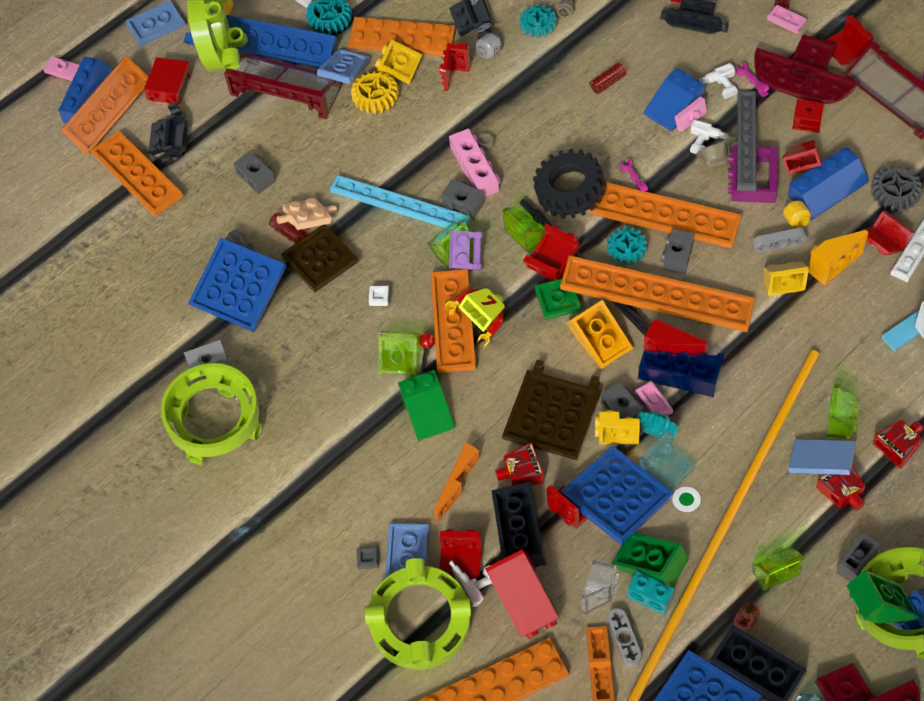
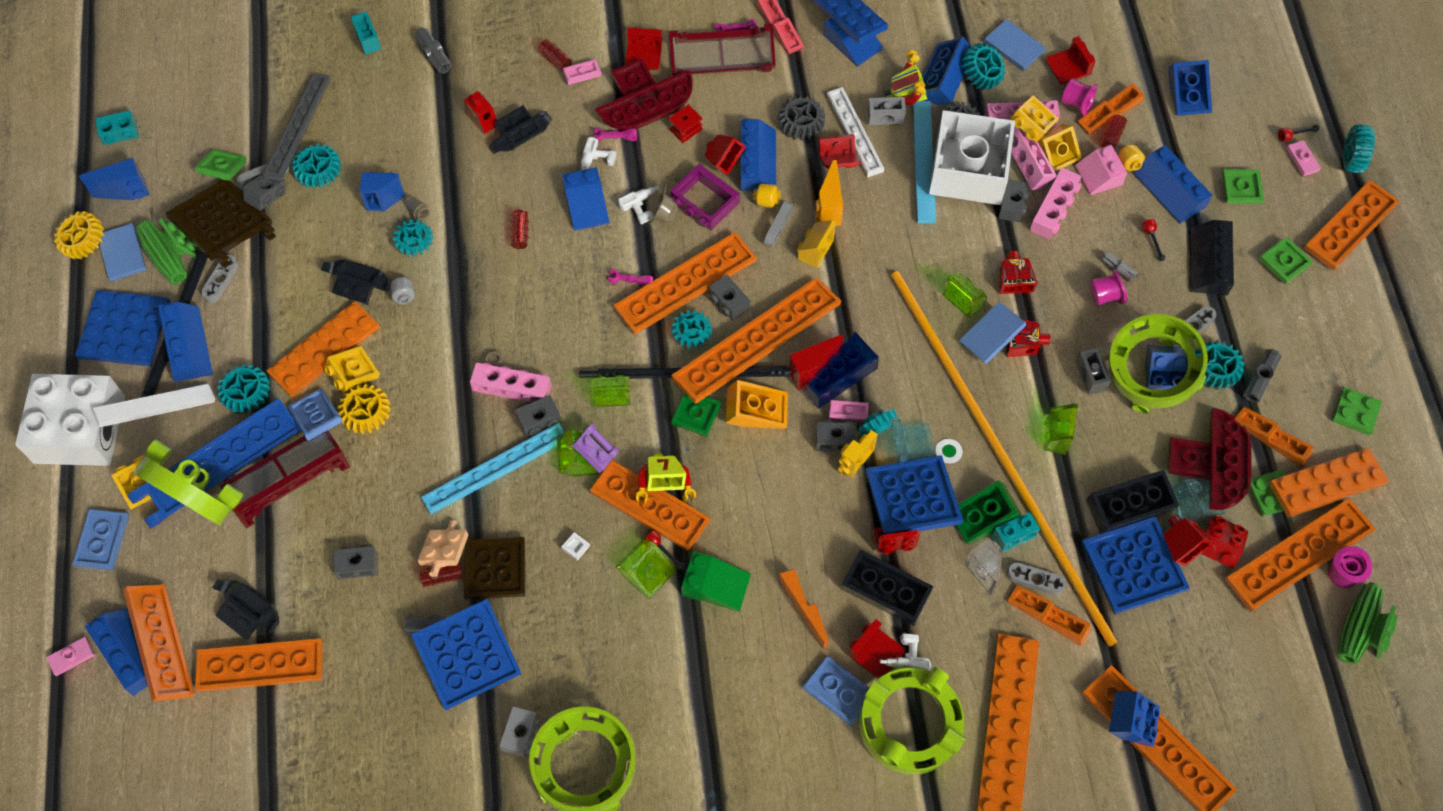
camera: 60 degrees left, 5 degrees up
(167, 80) = (182, 570): red panel -> none
(367, 558) = (820, 726): dark grey tile -> none
(455, 58) = (394, 322): red bracket -> none
(521, 467) = (832, 548): red torso -> none
(523, 594) = (954, 624): slope -> none
(552, 253) = (653, 386): red panel -> none
(552, 413) = (800, 491): dark brown plate -> none
(571, 201) = (615, 343): black tyre -> none
(690, 113) = (610, 197): bright pink plate -> none
(746, 141) = (675, 178): dark grey tile -> none
(747, 616) = (1089, 479): clear red axle -> none
(880, 599) = (1151, 379): green slope -> none

